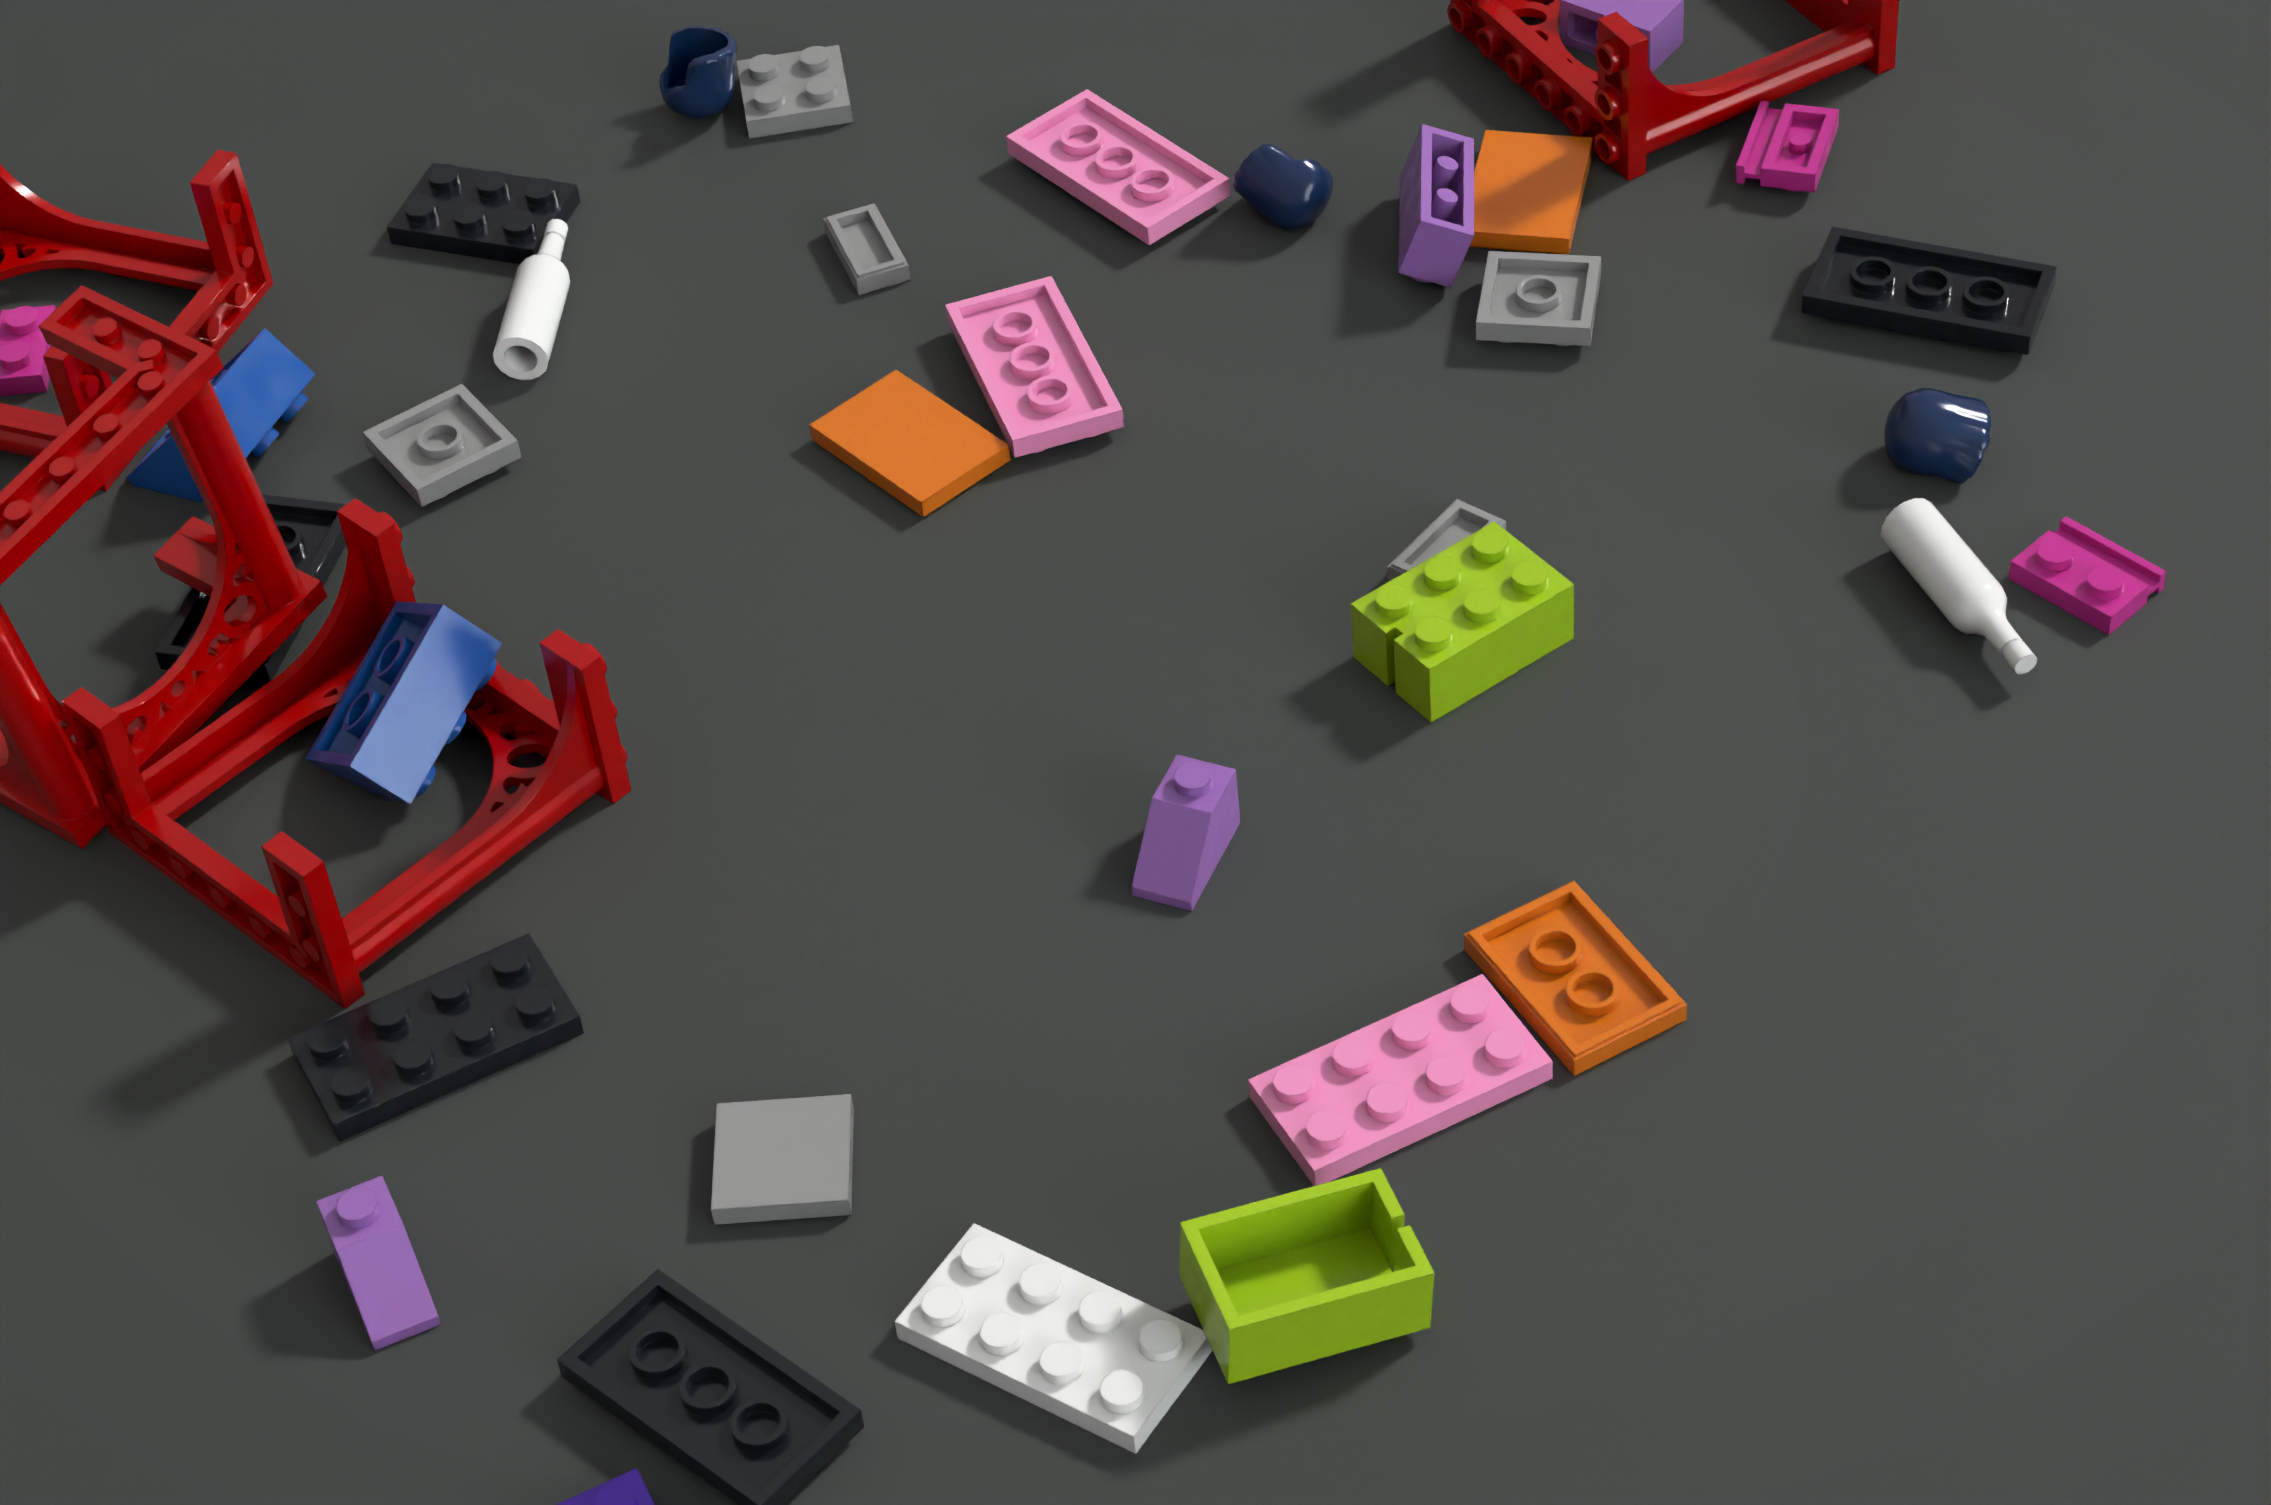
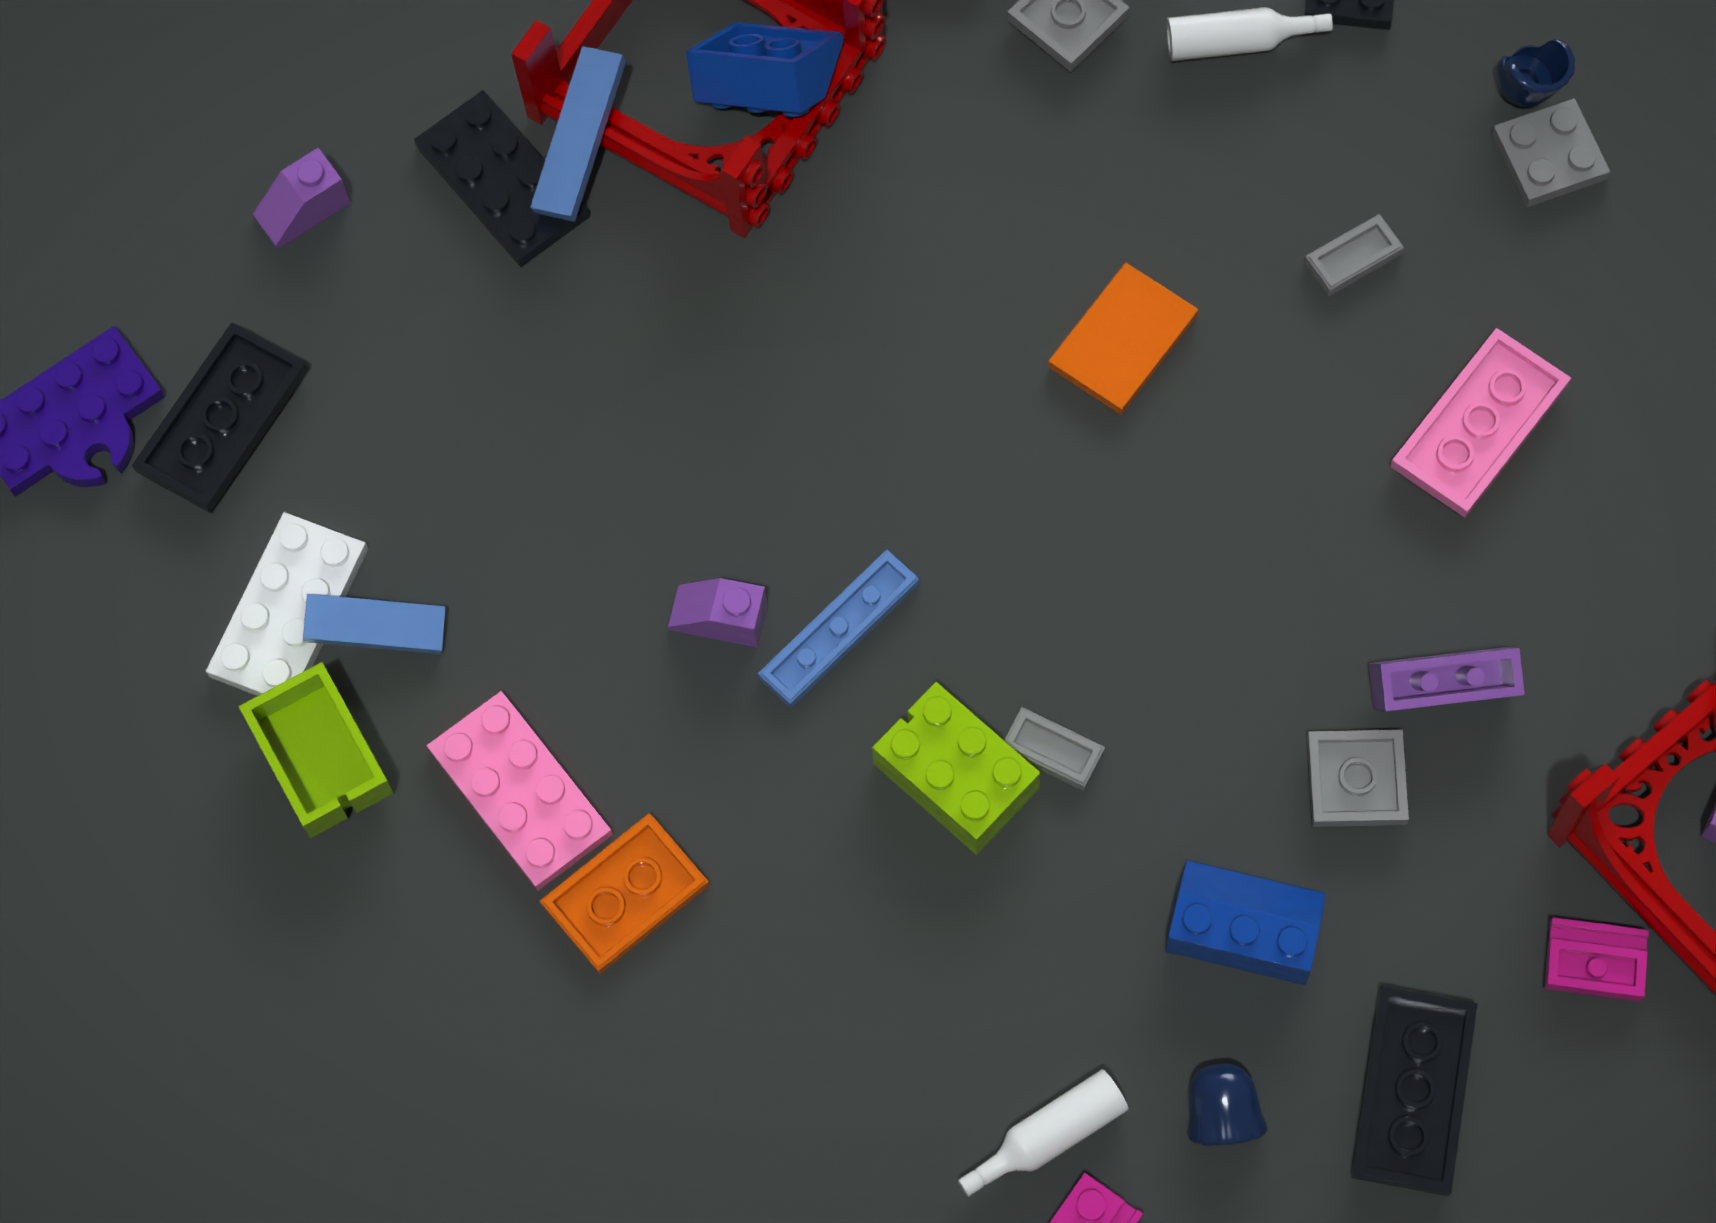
camera: 80 degrees right, 25 degrees up
(430, 903) = (578, 133): none -> medium blue tile
(783, 1159) = (415, 415): light grey tile -> none
(1034, 366) = (1218, 408): bright pink plate -> none
(1110, 1214) = (374, 624): none -> medium blue tile
(1237, 734) = (838, 628): none -> medium blue tile
(1284, 188) = (1464, 557): dark blue hair -> none
(1529, 190) = (1505, 751): orange tile -> none
(1709, 399) = (1246, 922): none -> blue slope

